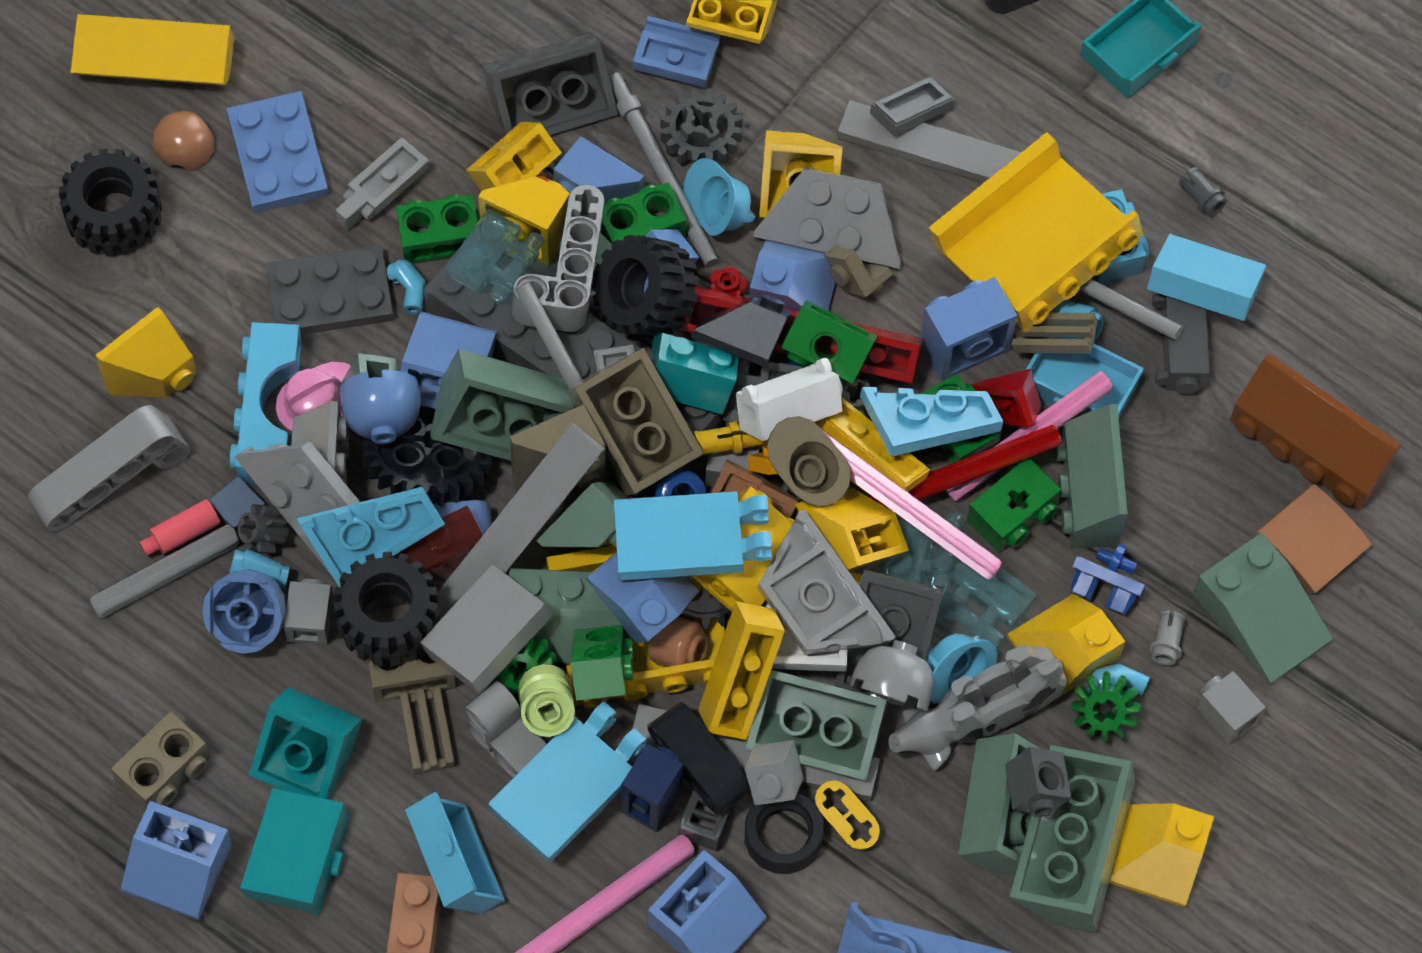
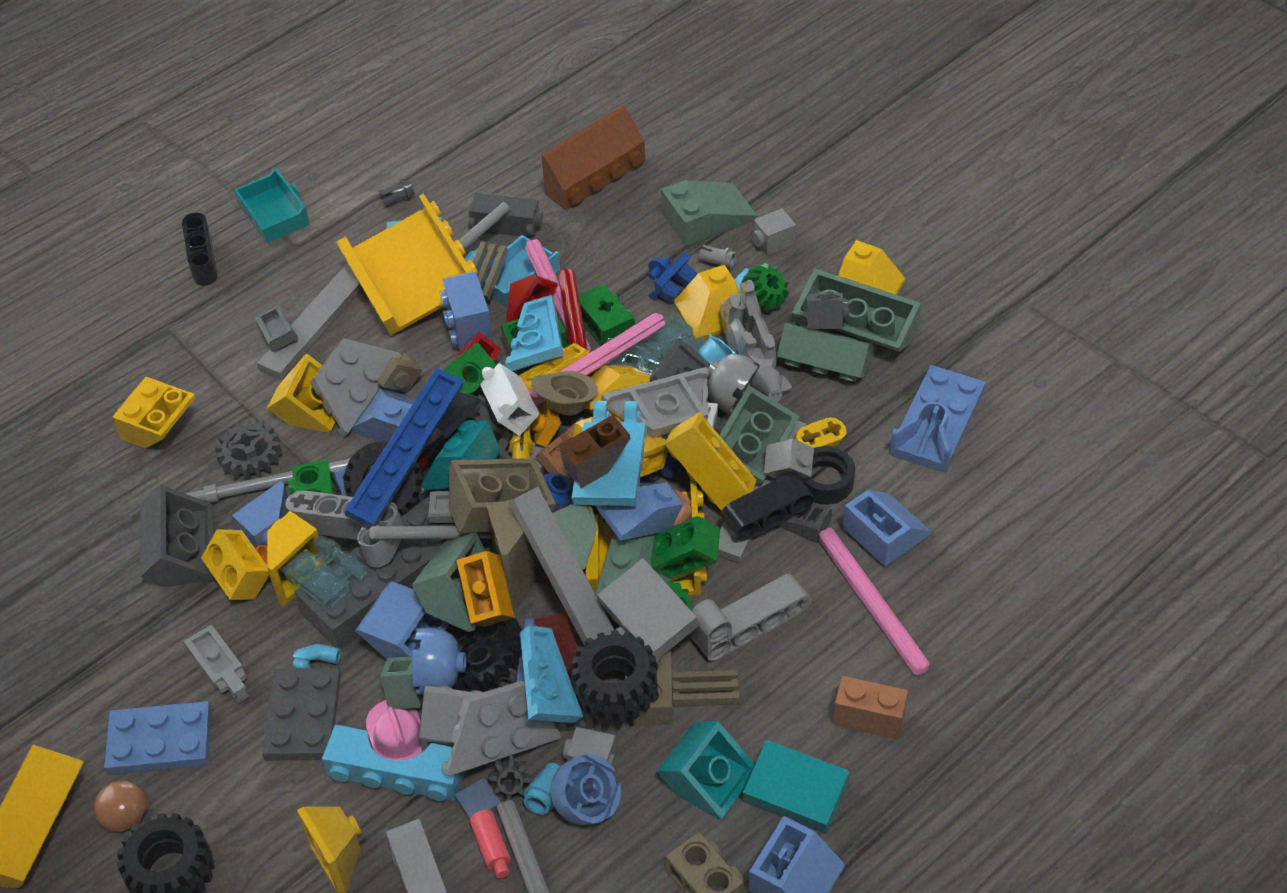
camera: 75 degrees left, 15 degrees down
(440, 238) = (274, 618): green brick -> none
(454, 854) = (822, 664): medium azure container -> none
(475, 434) = (485, 589): none -> light orange brick
(546, 700) = (713, 581): yellowish green wheel -> none
(567, 783) = (776, 585): medium azure tile -> none
(652, 786) = (786, 536): dark blue brick -> none
(659, 290) = (403, 448): none -> blue plate
(665, 503) = (594, 450): none -> reddish brown slope
(676, 51) = (175, 458): medium blue plate -> none
(716, 197) = (311, 442): medium azure piece -> none
(1092, 479) = (601, 260): sand green slope -> none
(1206, 277) = (469, 189): medium azure container -> none
(1315, 538) = (656, 174): nougat slope -> none

